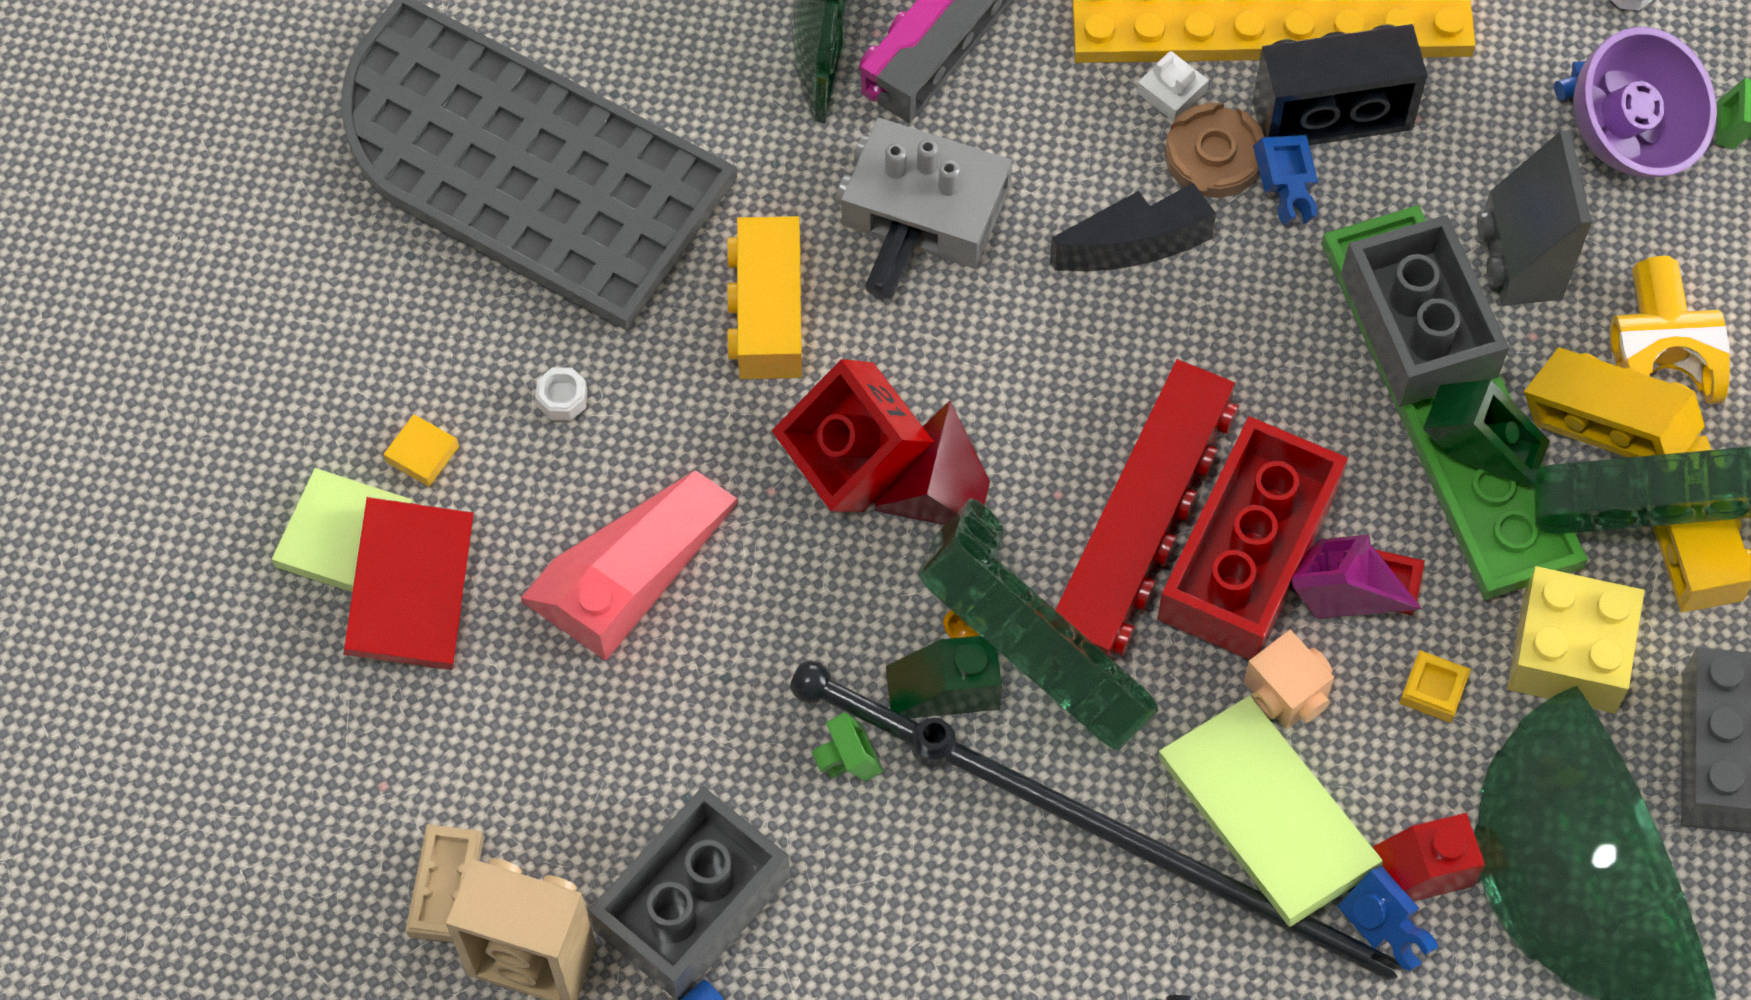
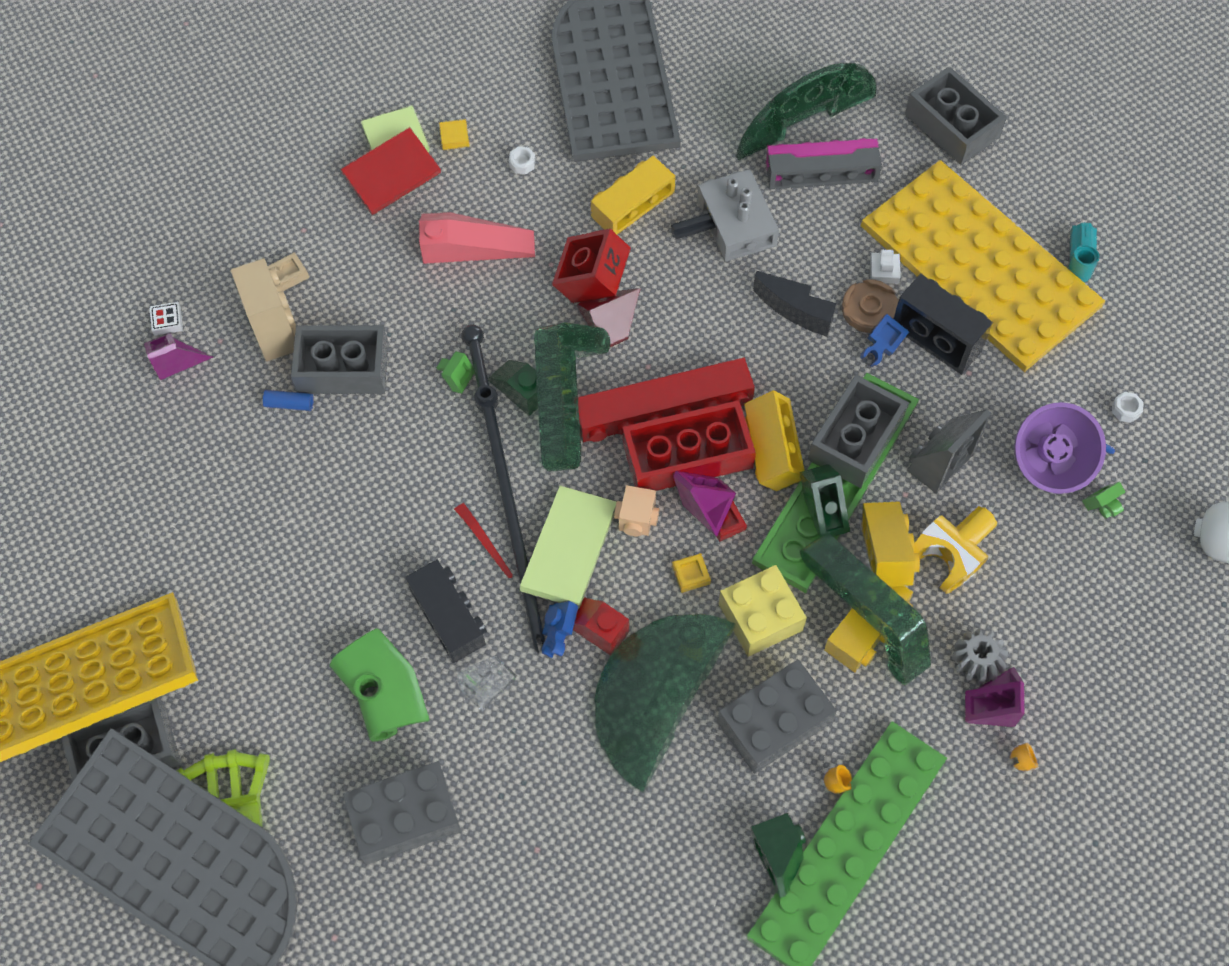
camera: 50 degrees right, 0 degrees up
(1116, 914) = (473, 524): none -> red sticker
(1338, 420) = (774, 440): none -> yellow brick

